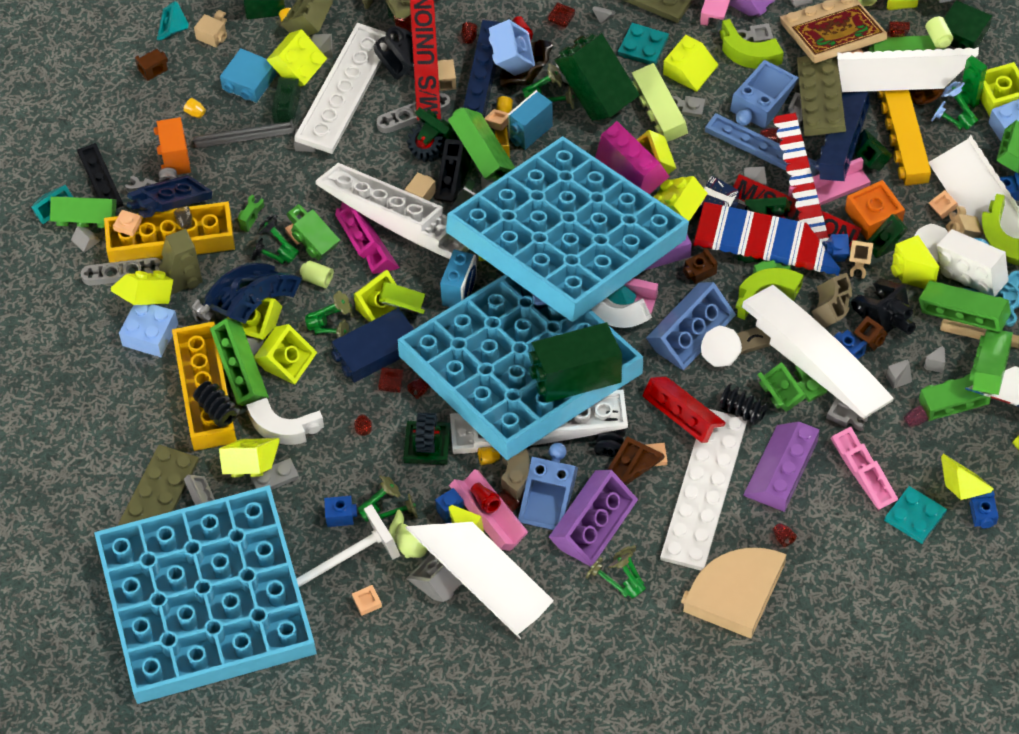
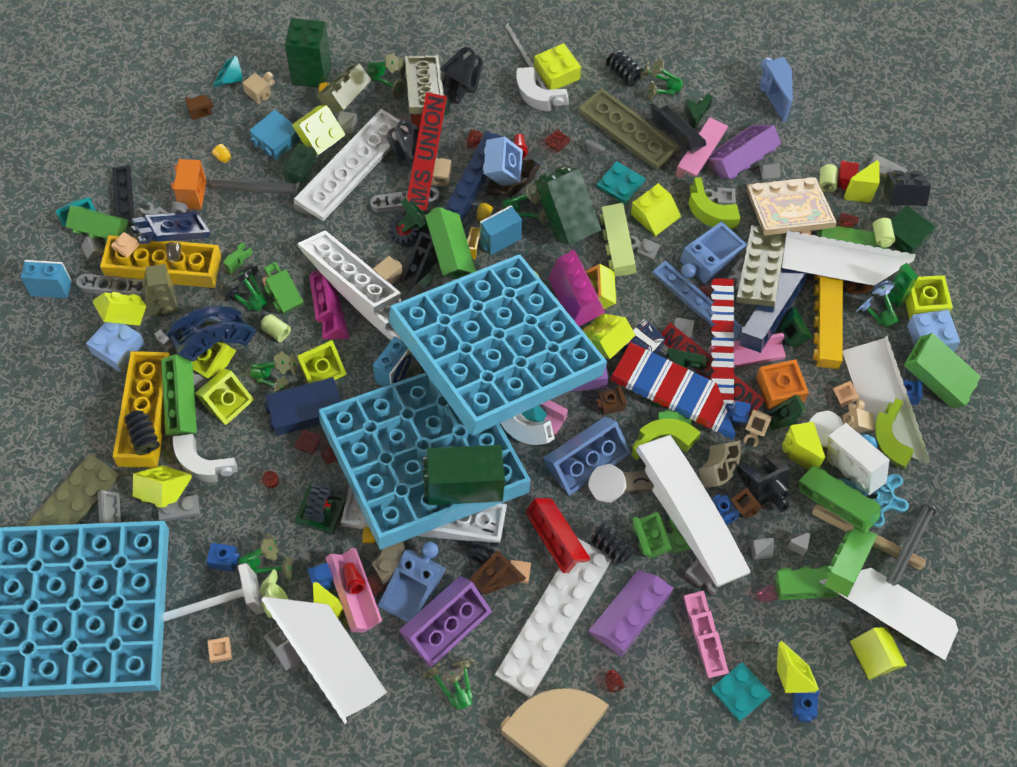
camera: 10 degrees right, 5 degrees up
(49, 278) = (46, 279): none -> dark azure piece
(402, 297) = (339, 369): lime panel -> none
(497, 119) = (472, 222): light nougat plate -> none

